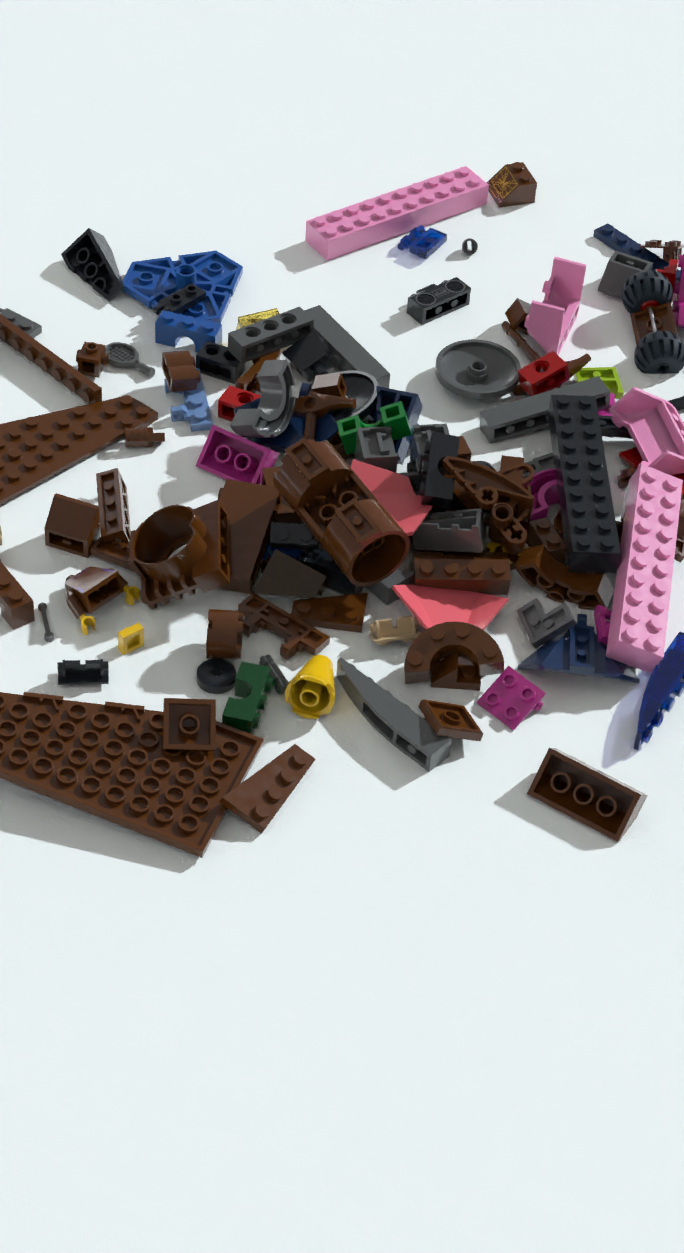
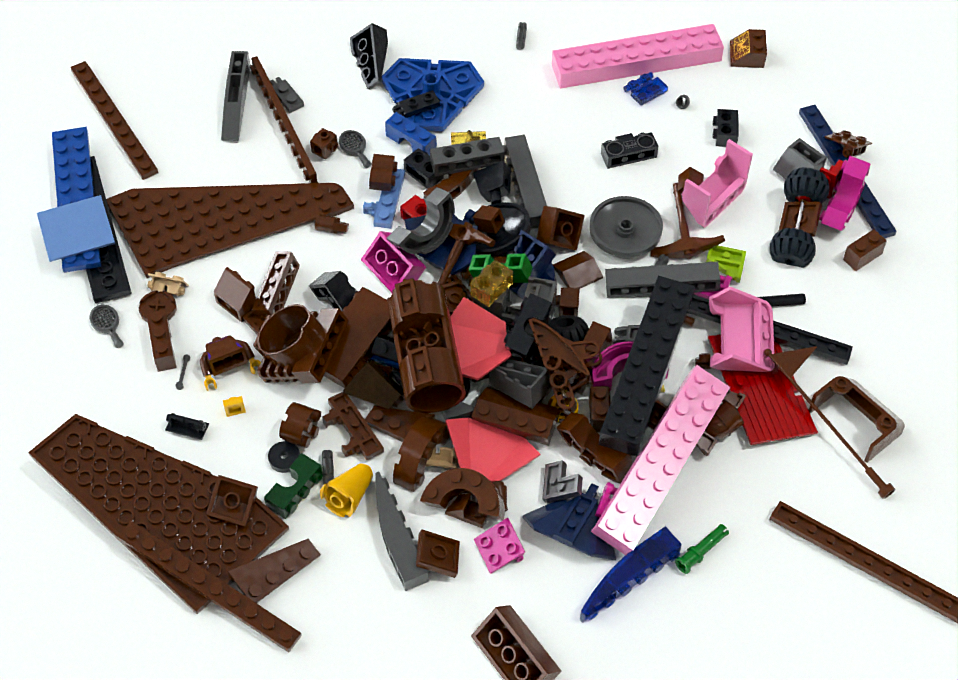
camera: 25 degrees right, 10 degrees up
(186, 490) = (334, 288): none -> black brick
(205, 819) = (210, 586): none -> reddish brown plate
(257, 218) = (521, 35): none -> dark grey axle
(374, 622) = (417, 449): none -> reddish brown brick
(379, 436) = (494, 279): none -> clear yellow brick
(411, 377) = (560, 227): none -> reddish brown slope
(454, 416) = (578, 270): none -> reddish brown slope
(529, 261) = (726, 126): none -> black brick
(543, 374) = (675, 247): red brick -> none

